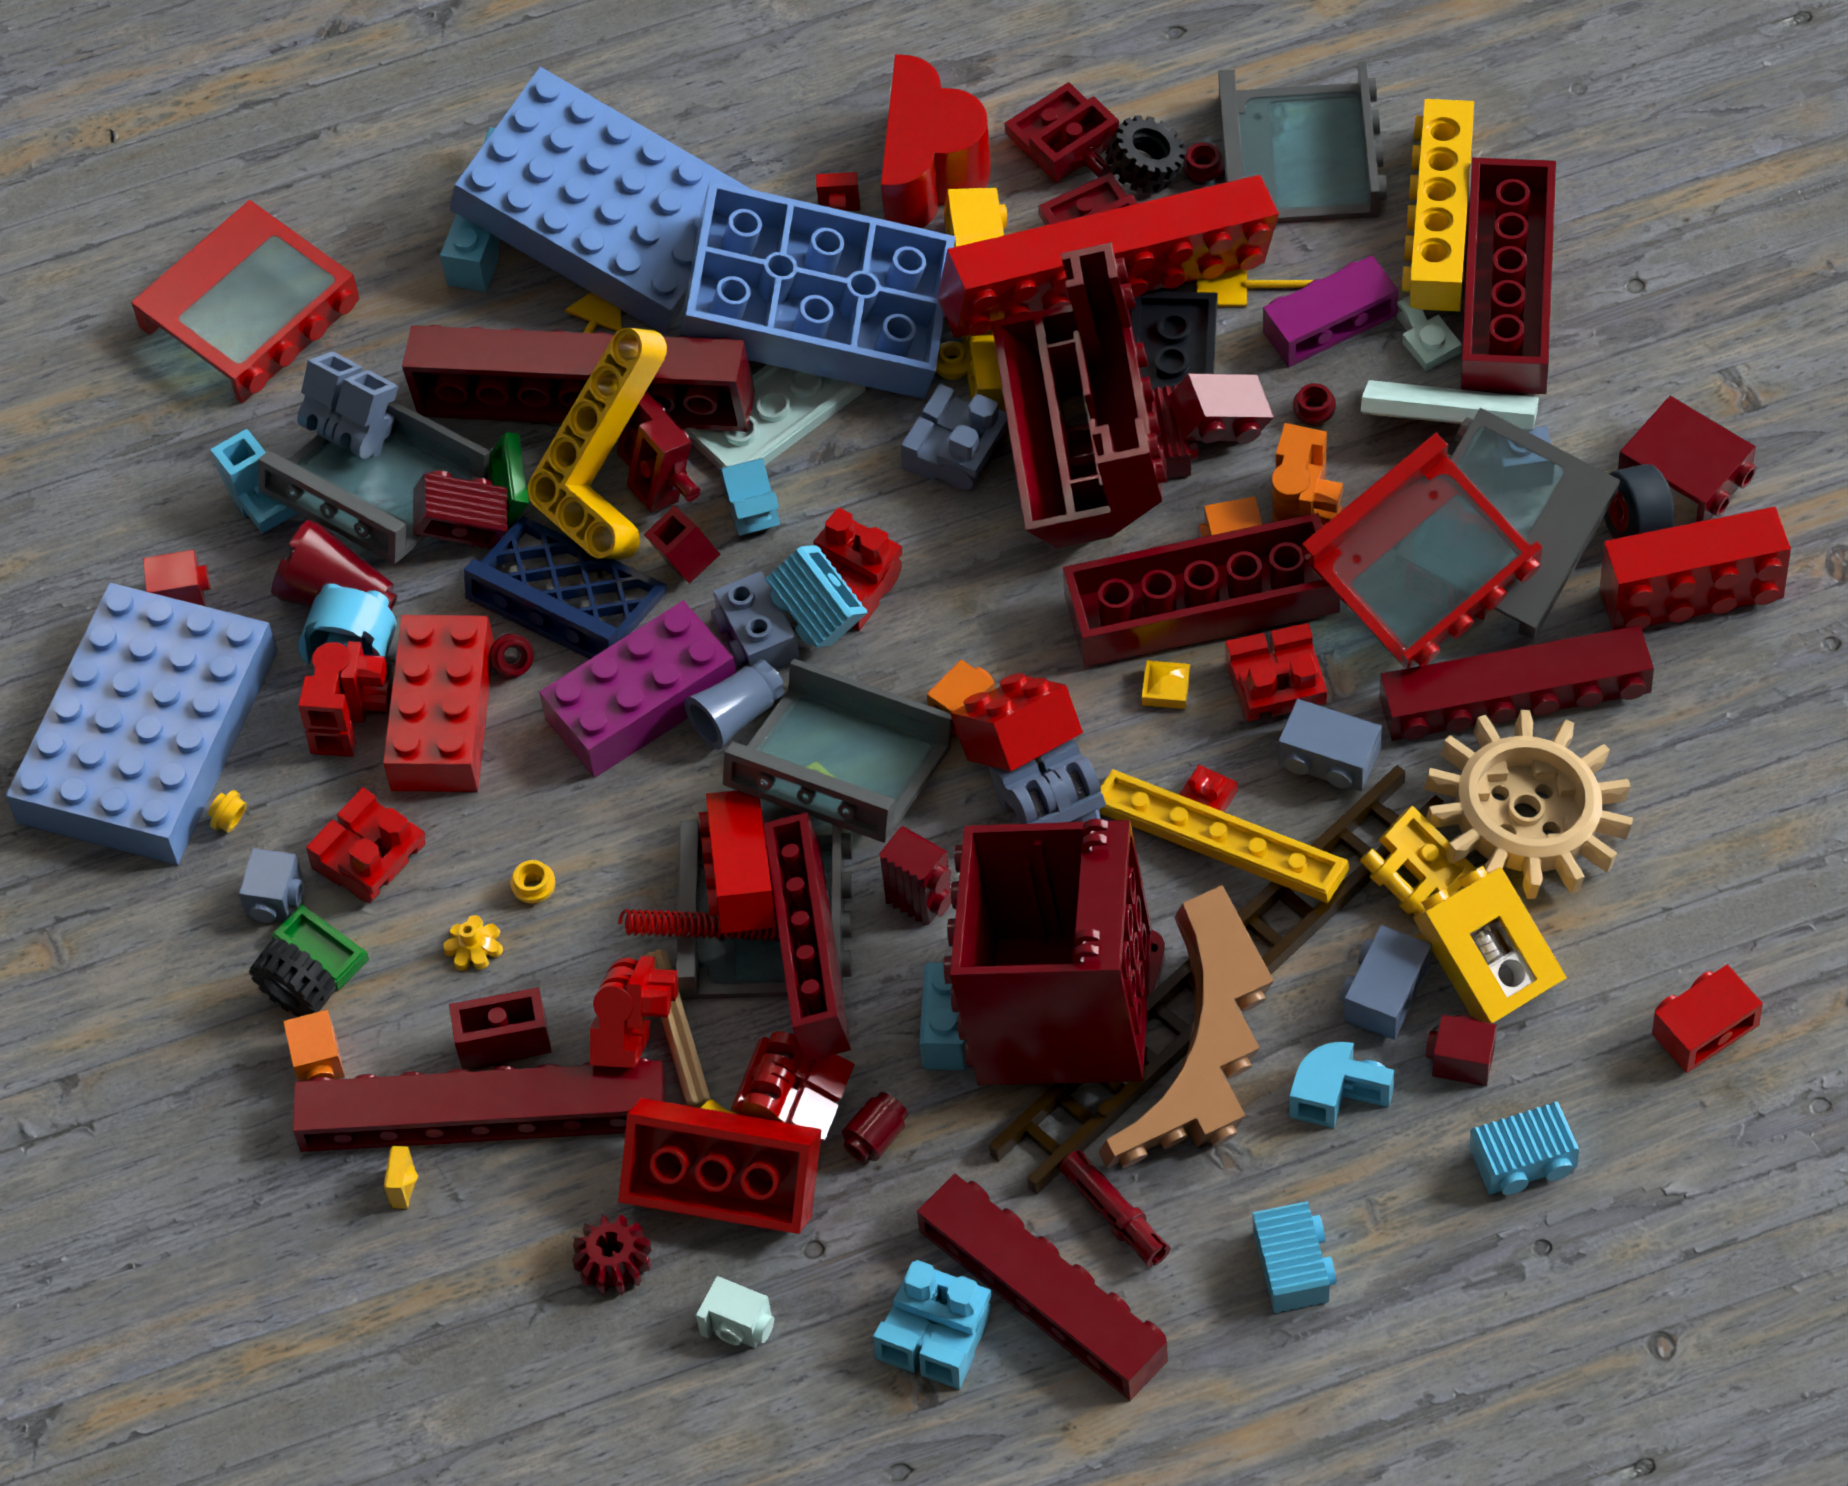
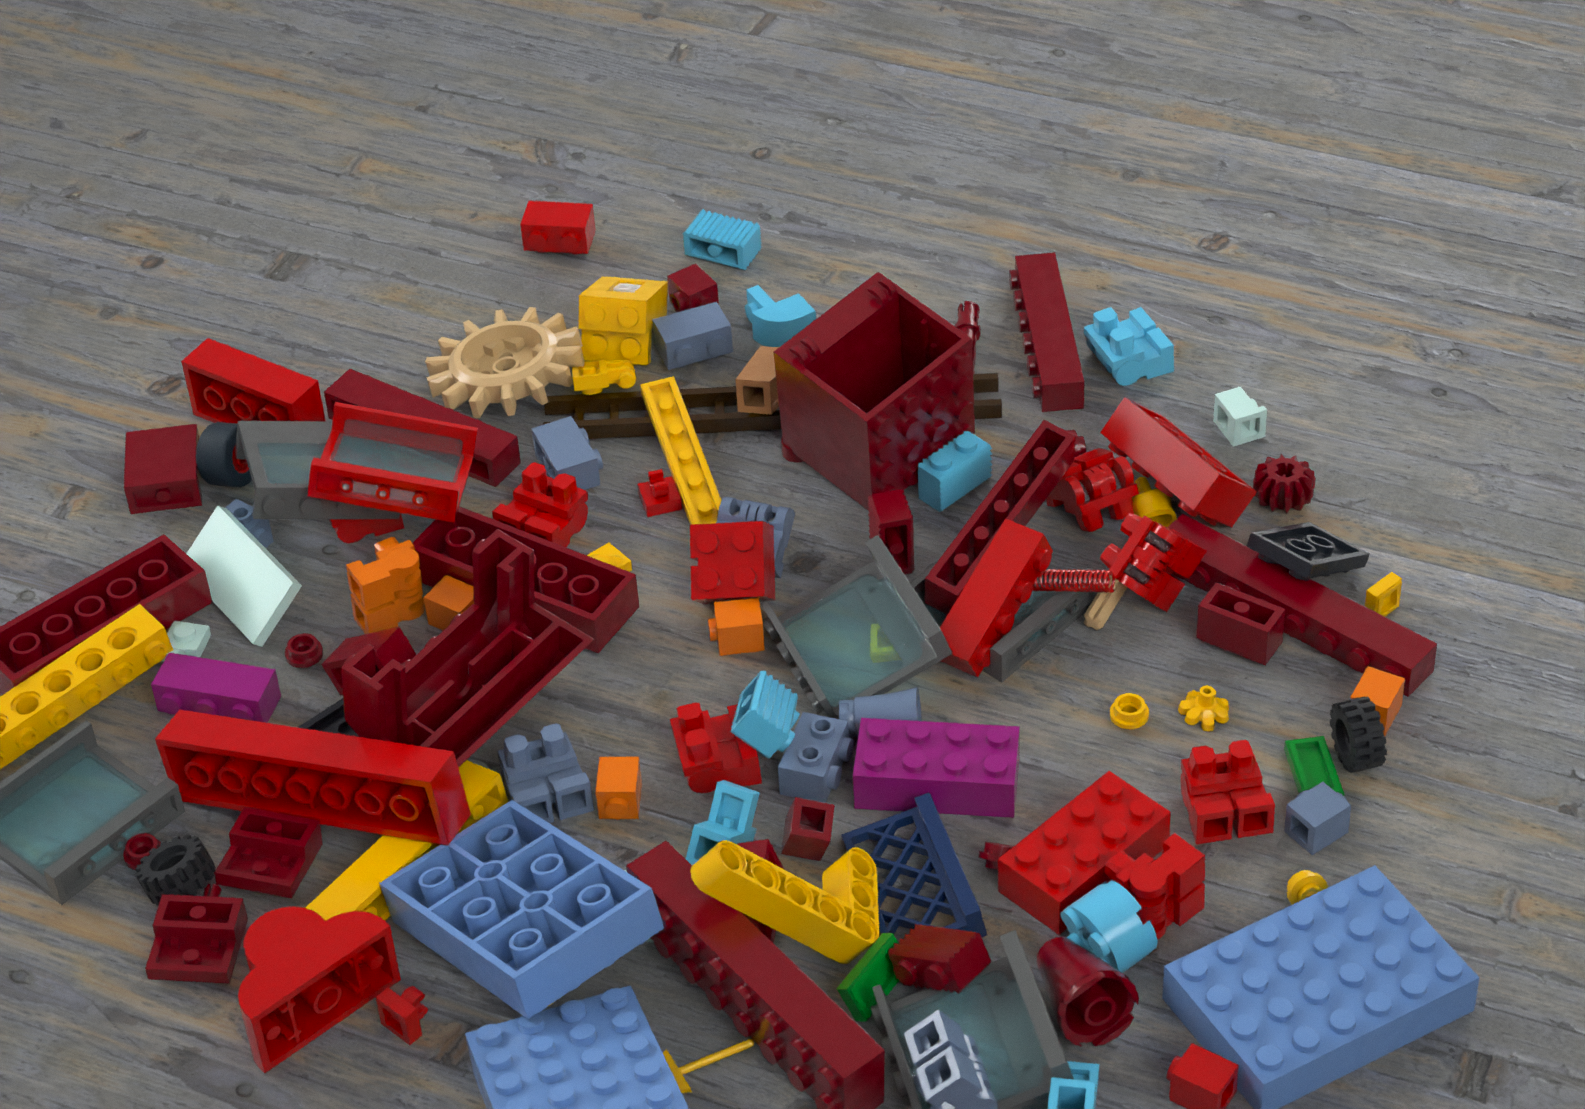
camera: 140 degrees left, 15 degrees down
(503, 1158) = (1307, 550): none -> black plate
(888, 479) = (618, 788): none -> orange brick
(1291, 1256) = (903, 261): medium azure brick -> none

